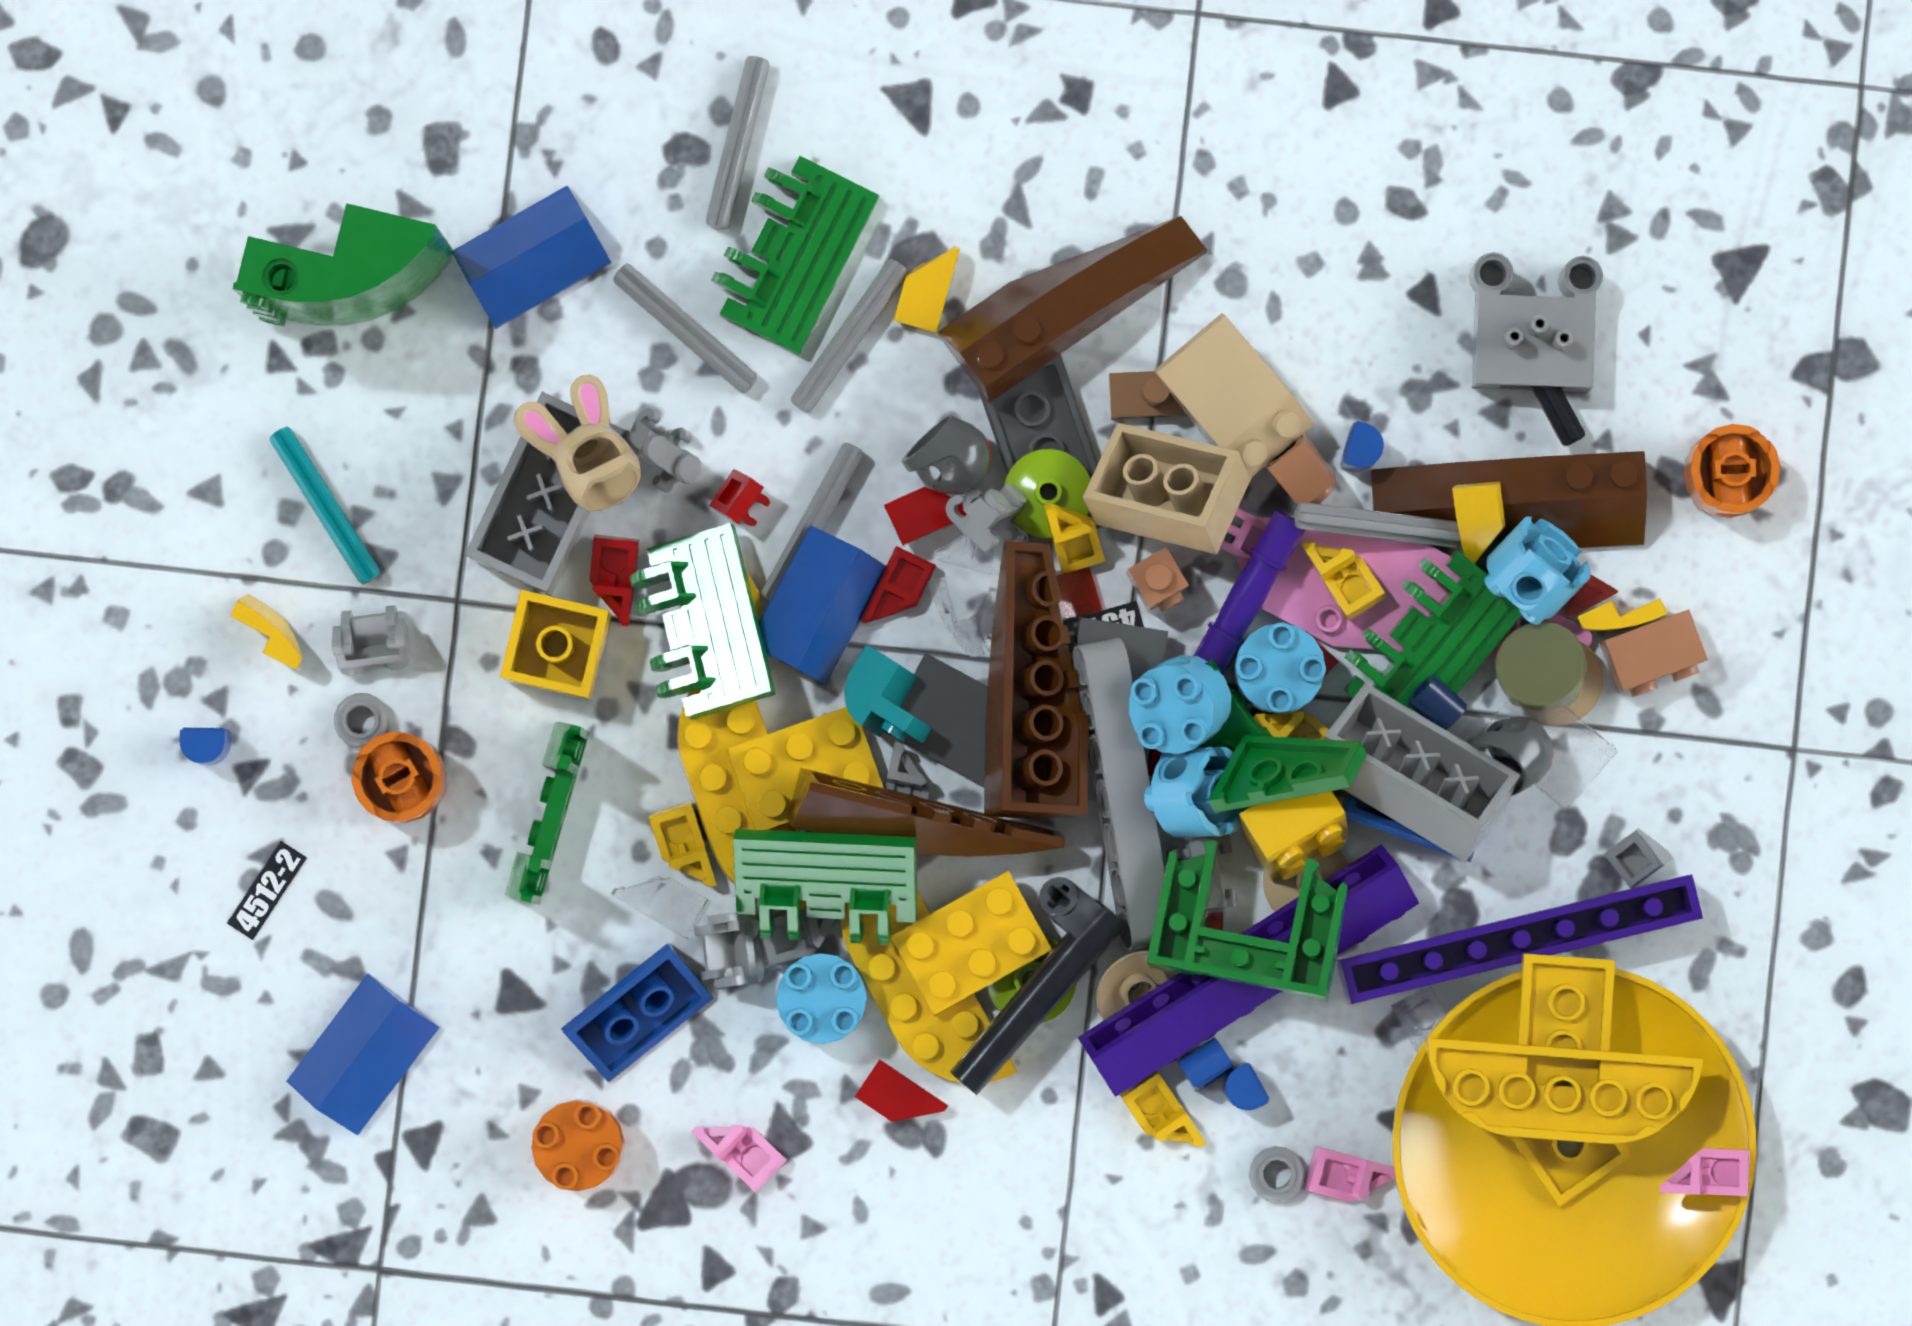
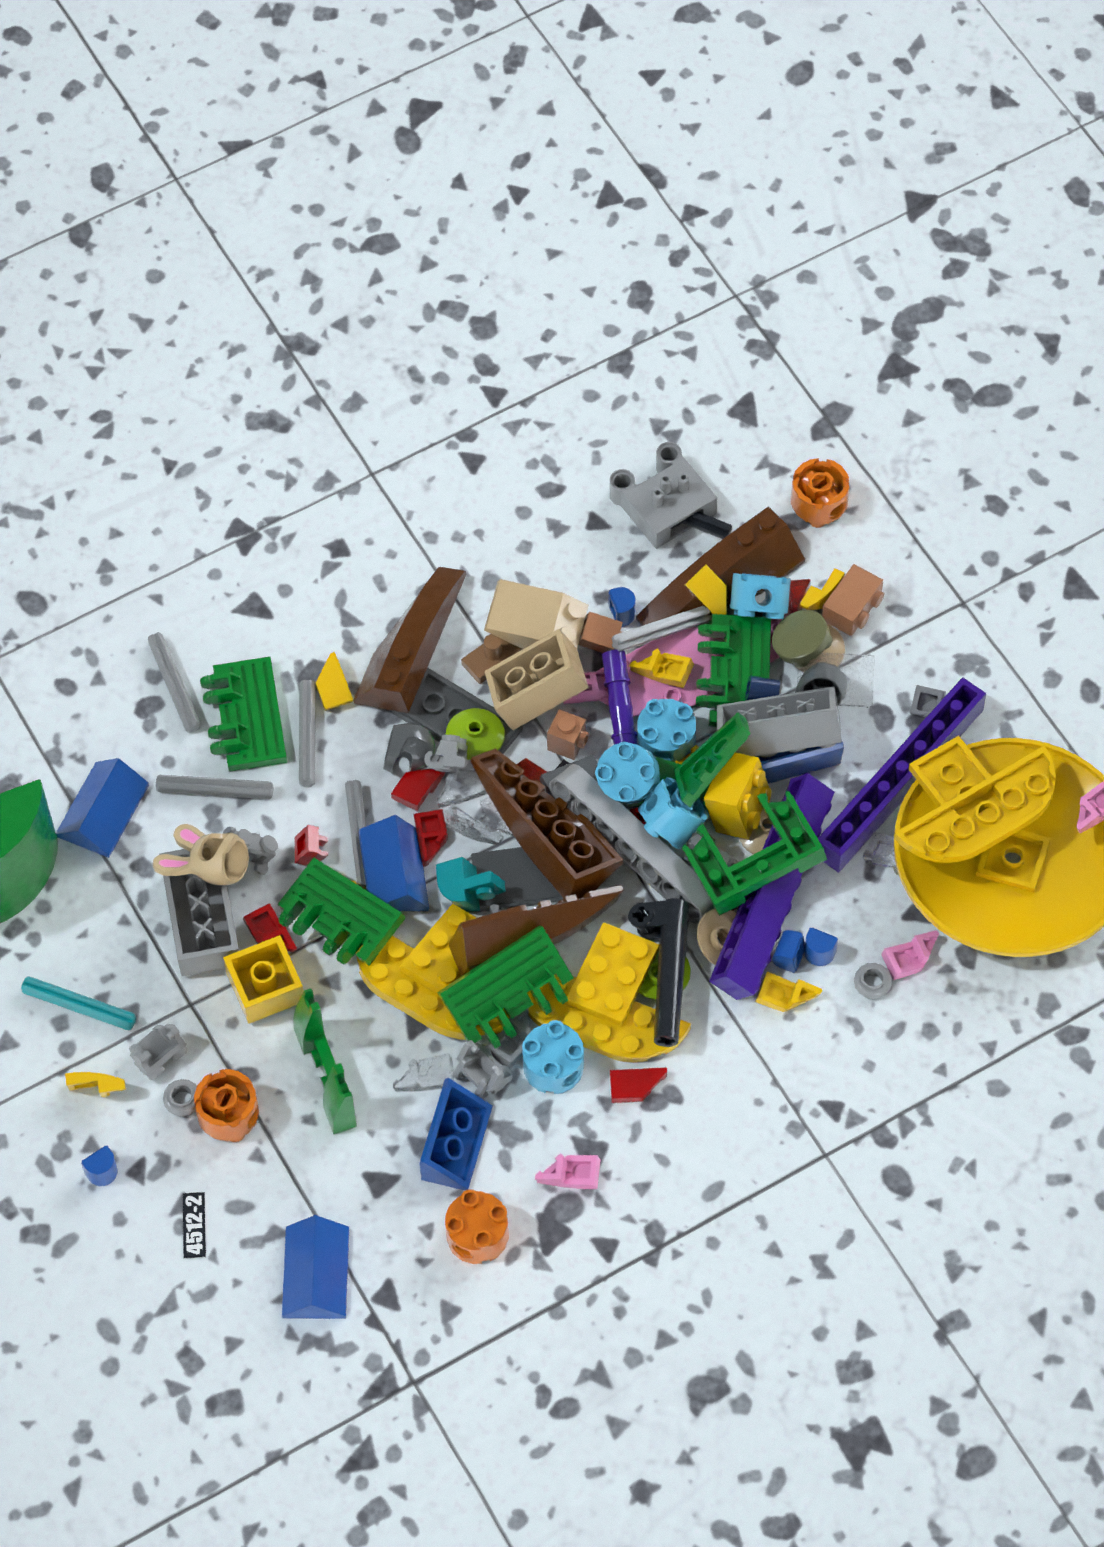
camera: 35 degrees left, 25 degrees down
(682, 842) = (412, 1038): yellow slope -> none
(1073, 538) = (506, 741): yellow slope -> none

